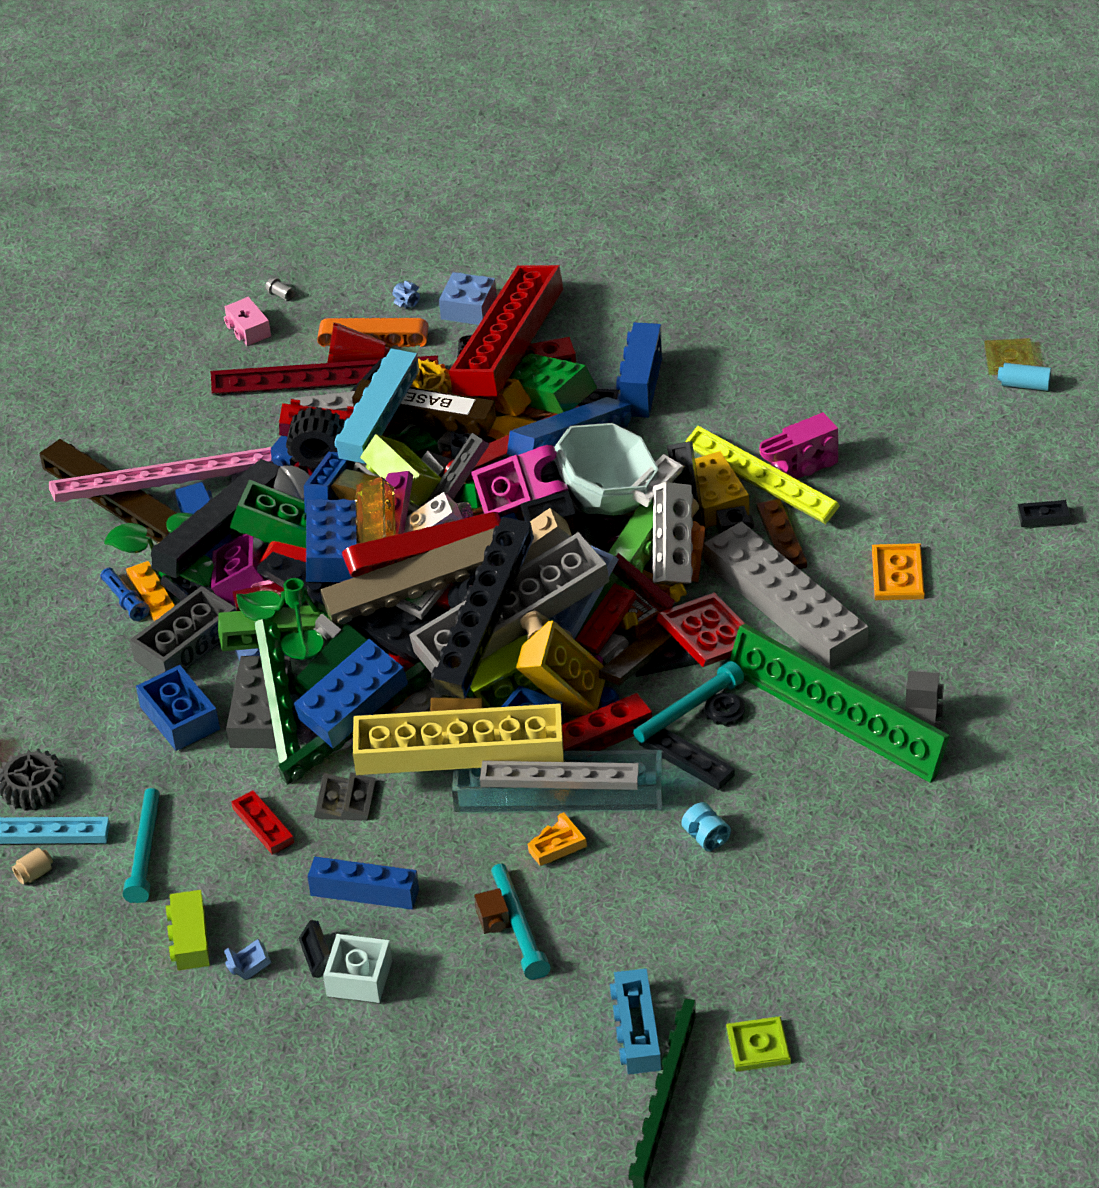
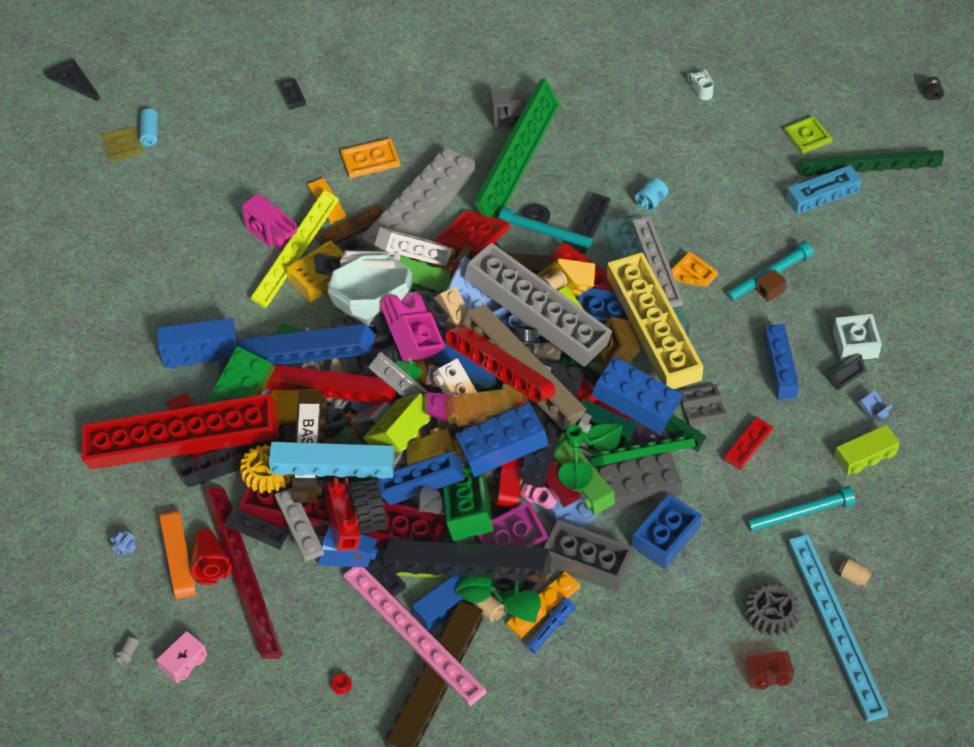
camera: 110 degrees left, 10 degrees up
(153, 428) = (341, 684): none -> red plate
(467, 298) = (121, 494): medium blue brick -> none
(482, 608) = (558, 302): black brick -> none
(843, 519) = (316, 189): none -> light orange tile
(902, 941) = (701, 84): none -> light aqua piece

